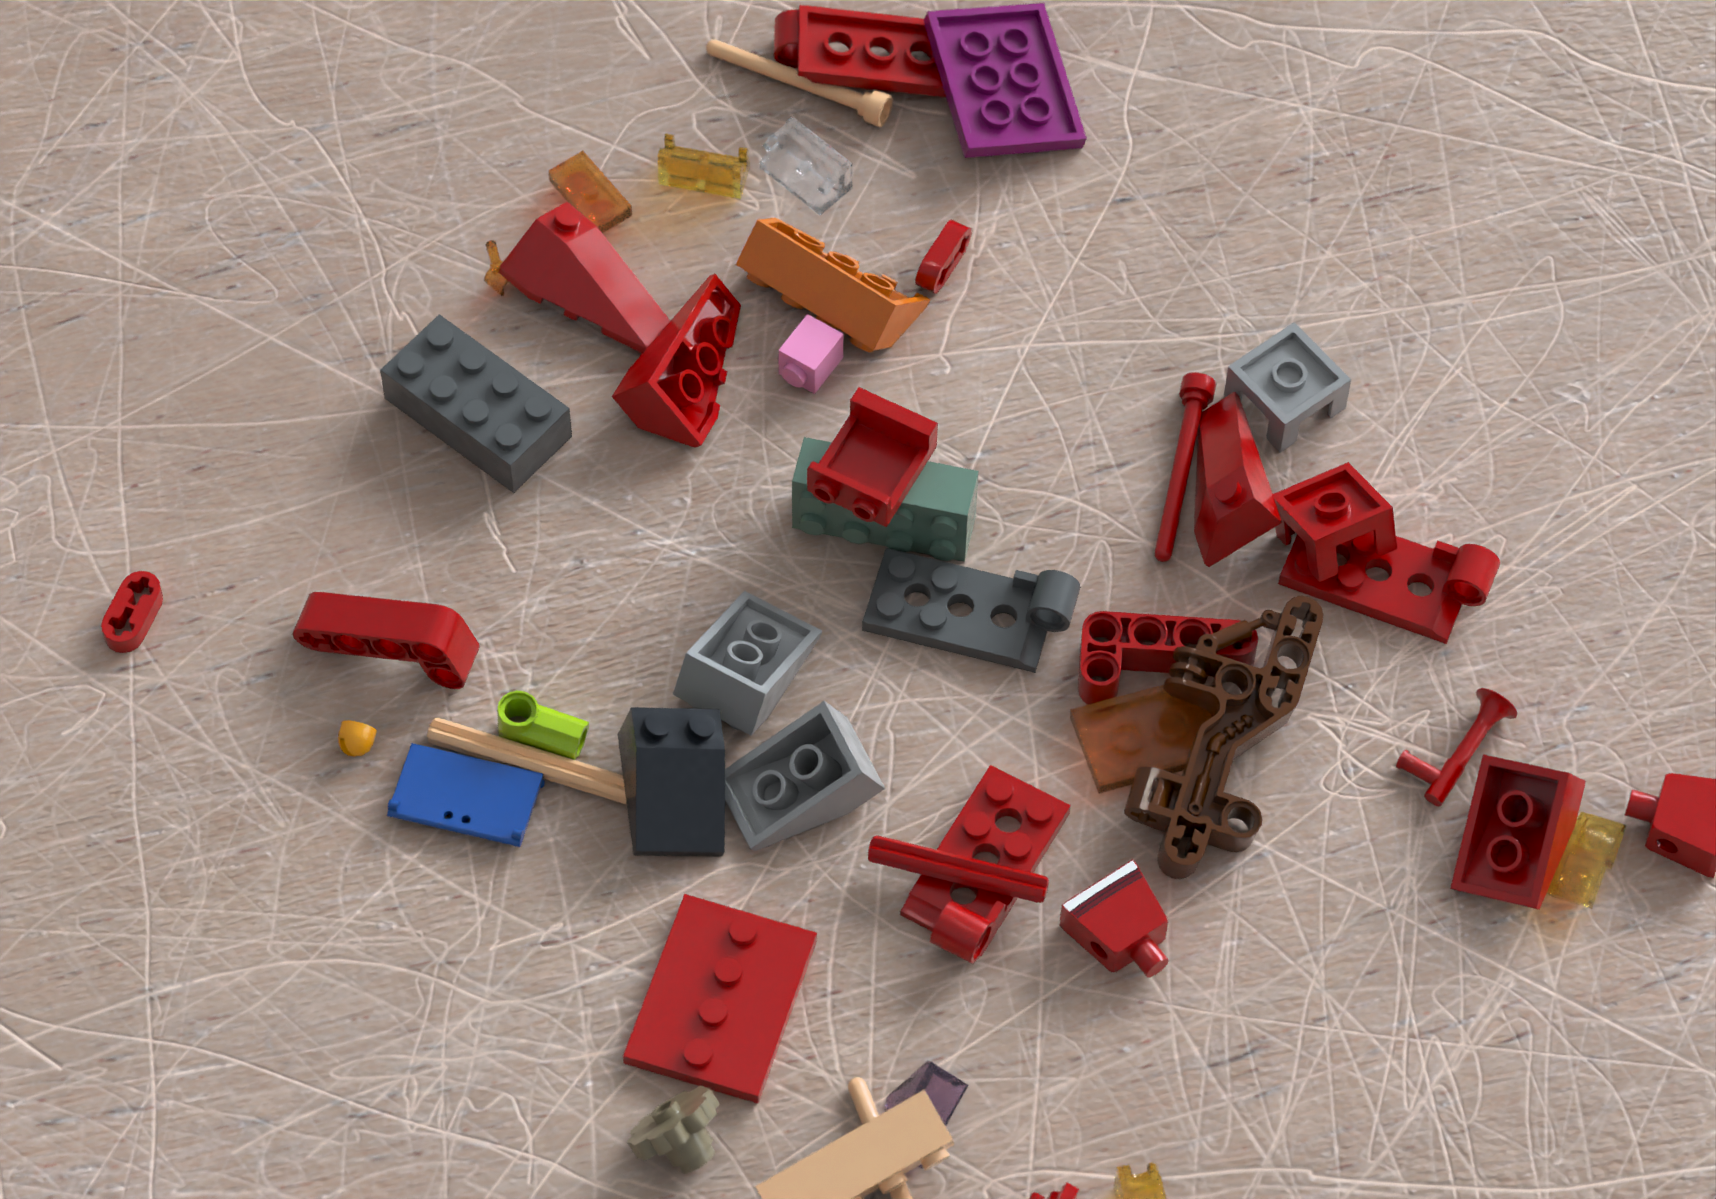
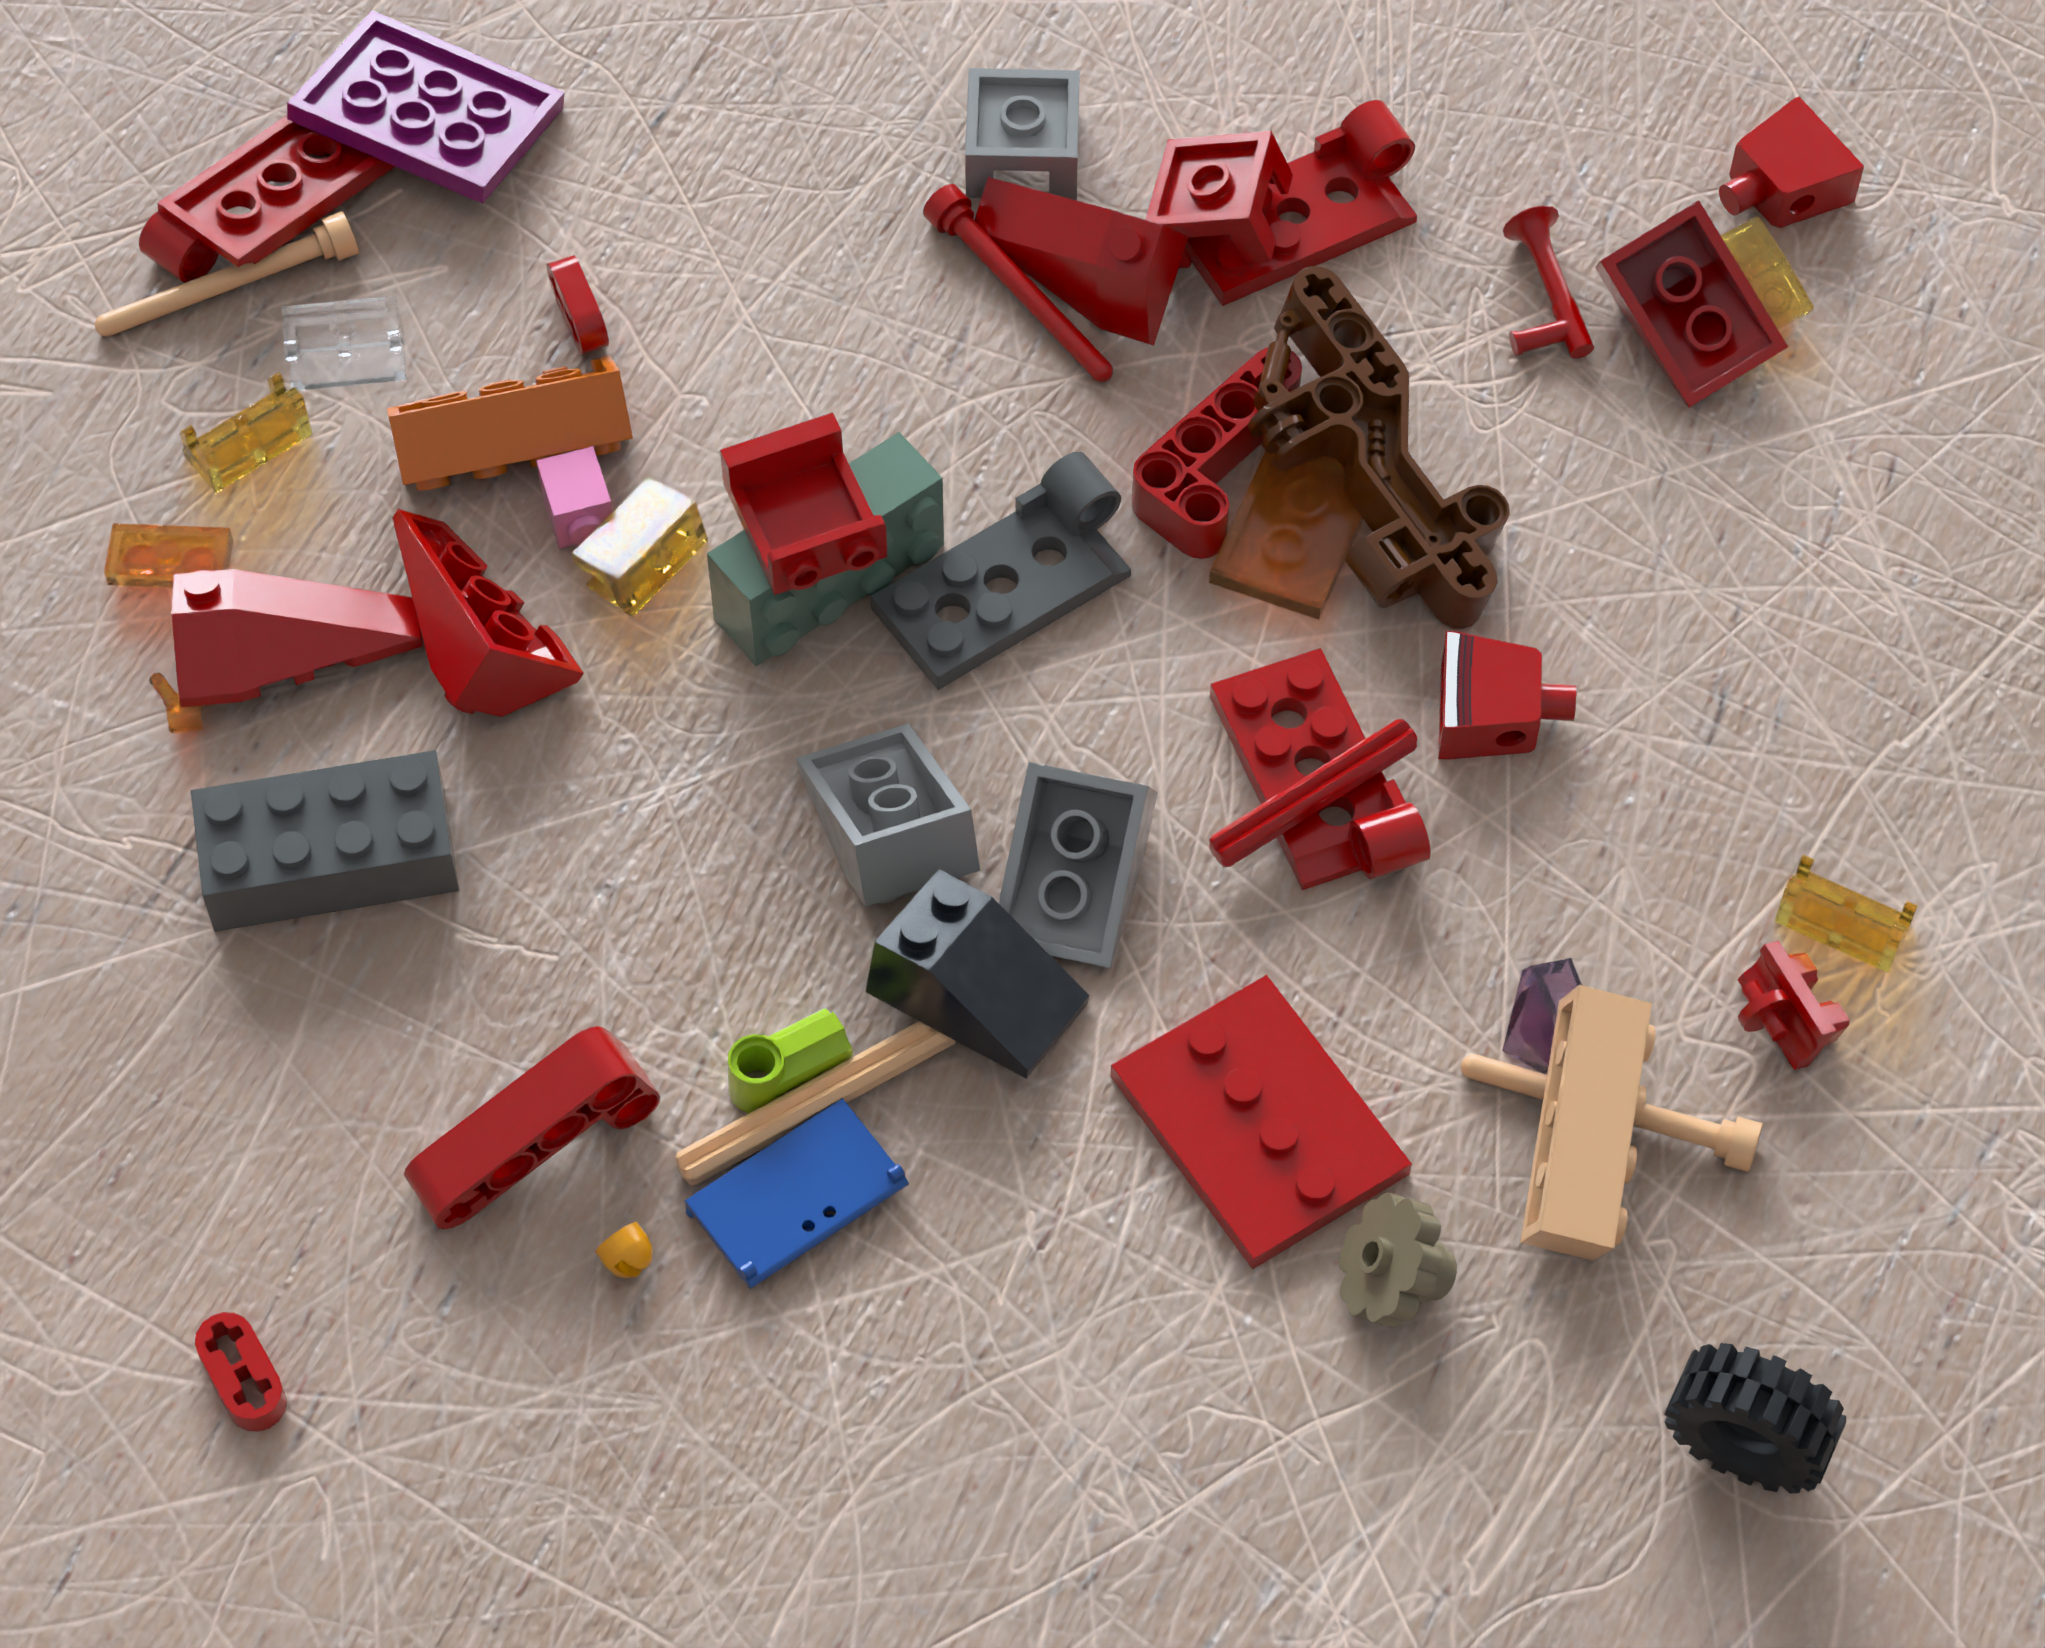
camera: 50 degrees left, 0 degrees up
(807, 408) = (641, 545): none -> clear yellow hinge

